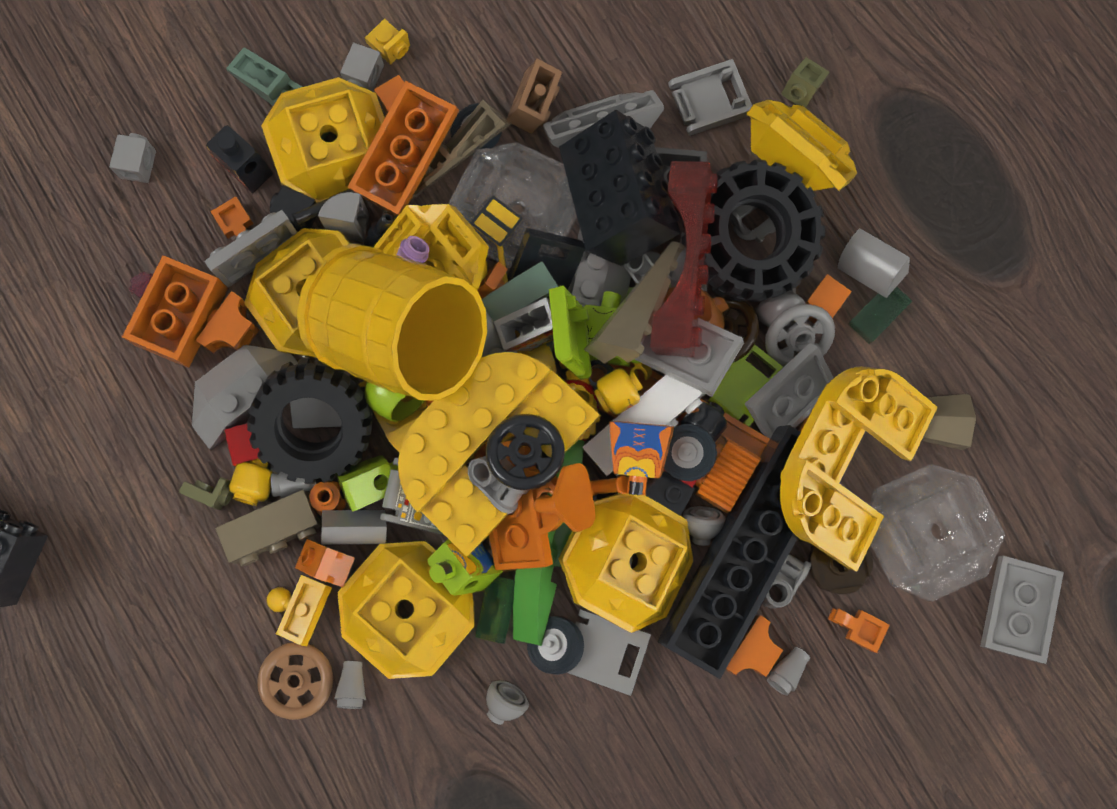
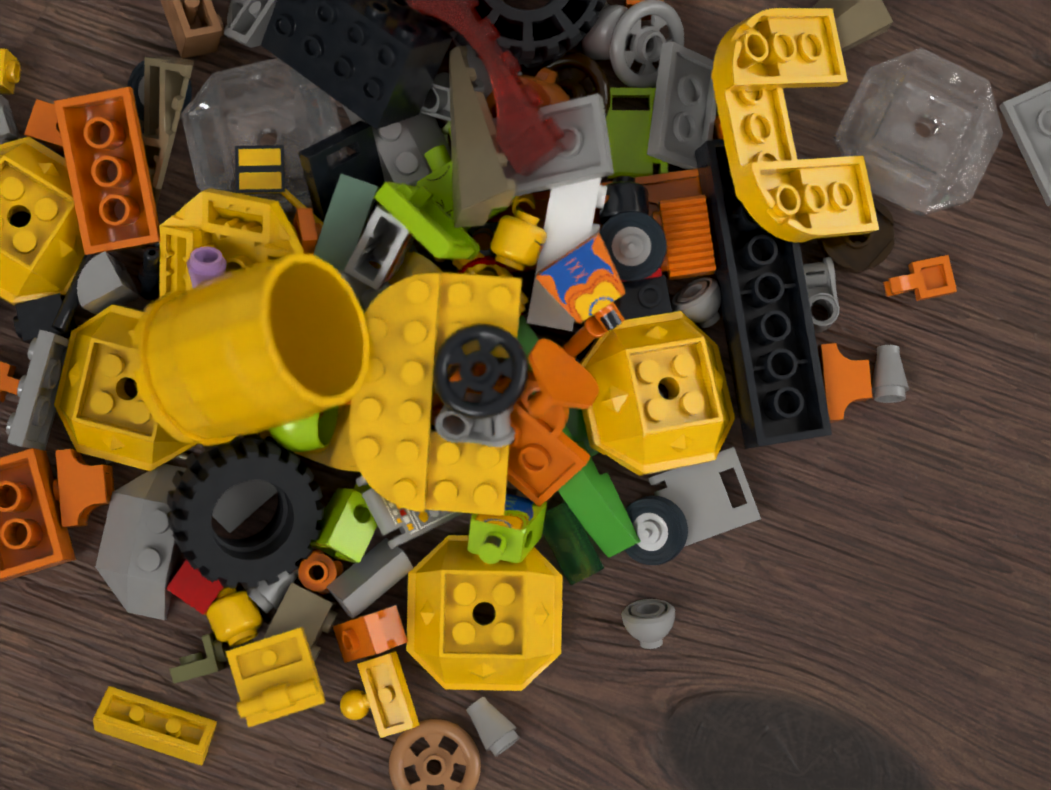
camera: 30 degrees left, 5 degrees up
(148, 509) = (154, 725): none -> yellow slope
(241, 540) = (275, 677): none -> yellow plate

